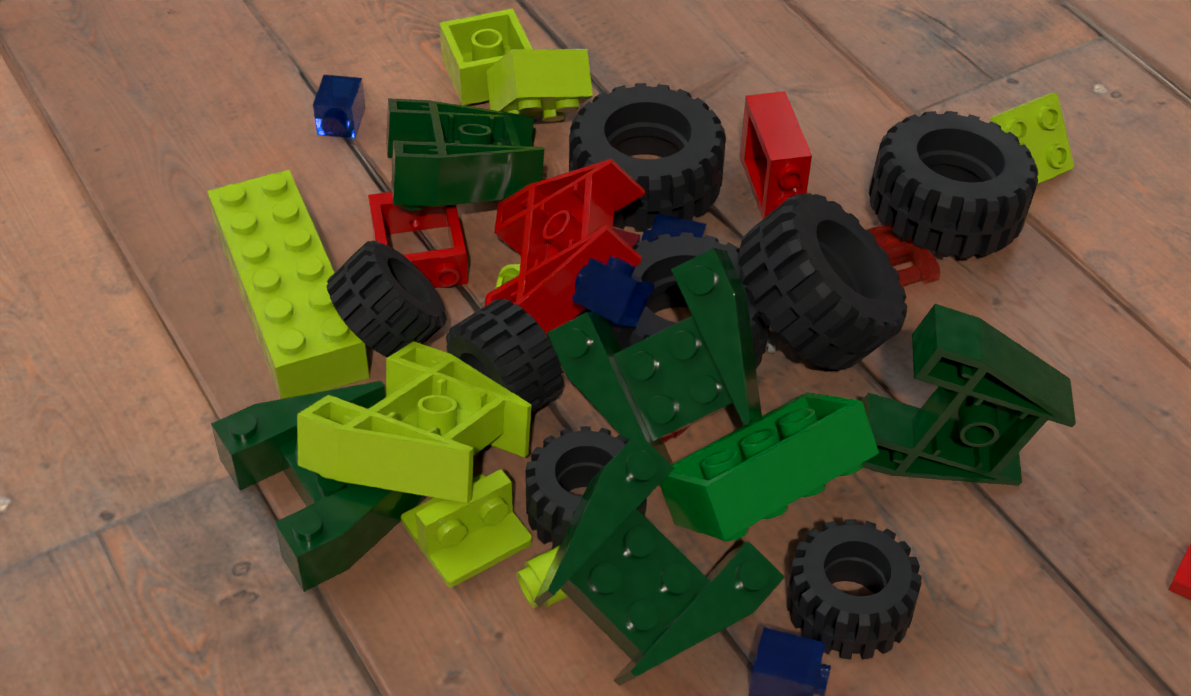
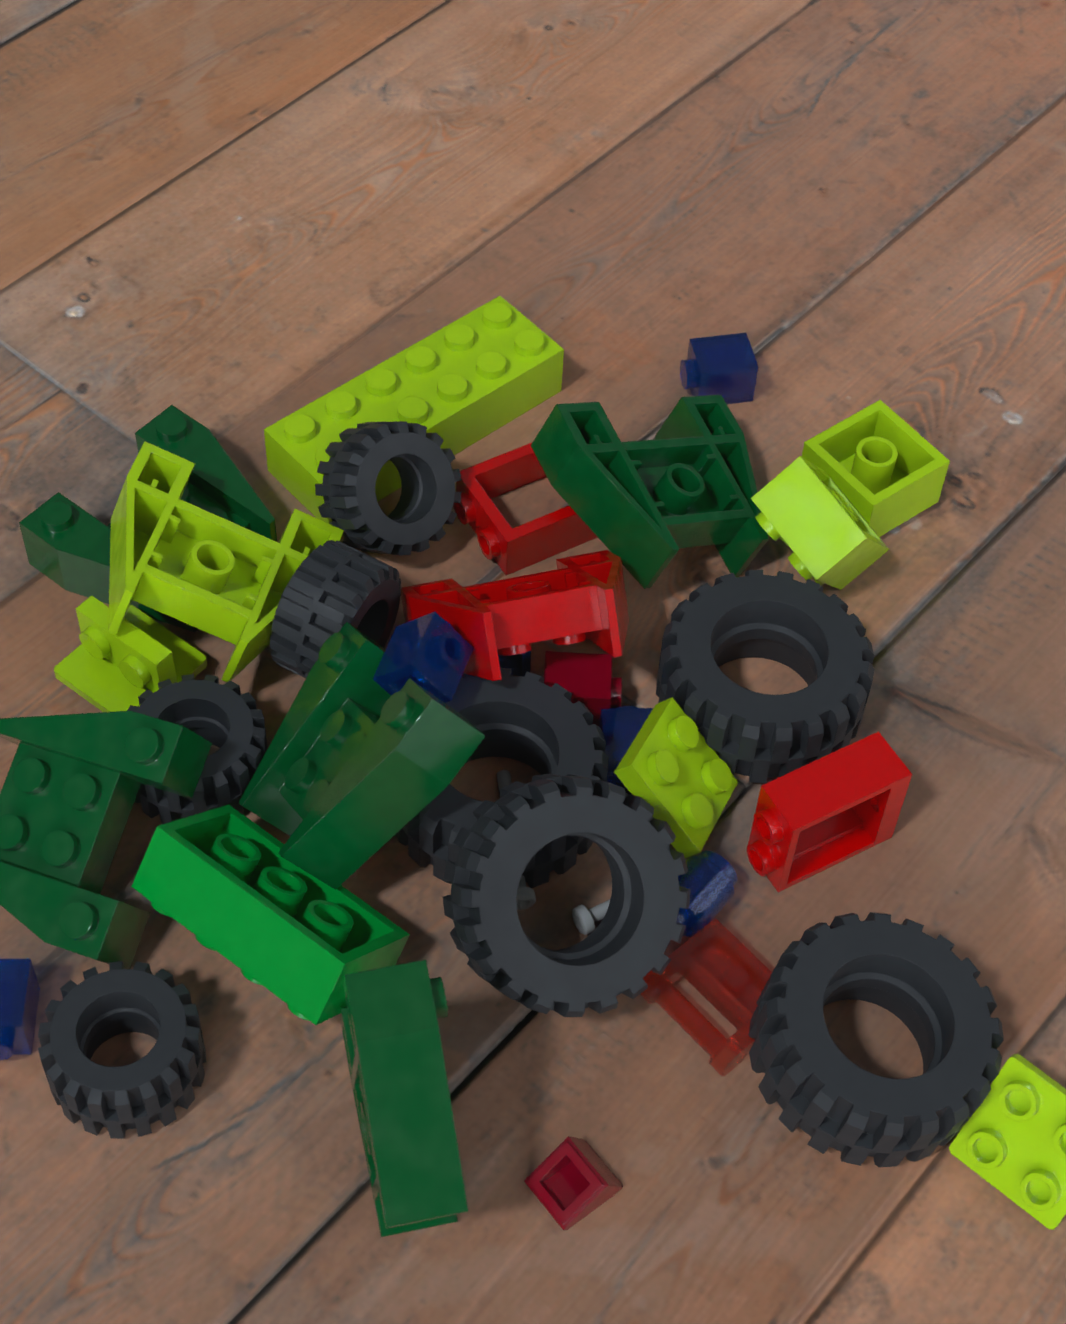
camera: 70 degrees right, 5 degrees up
(713, 212) = (677, 776): none -> lime plate

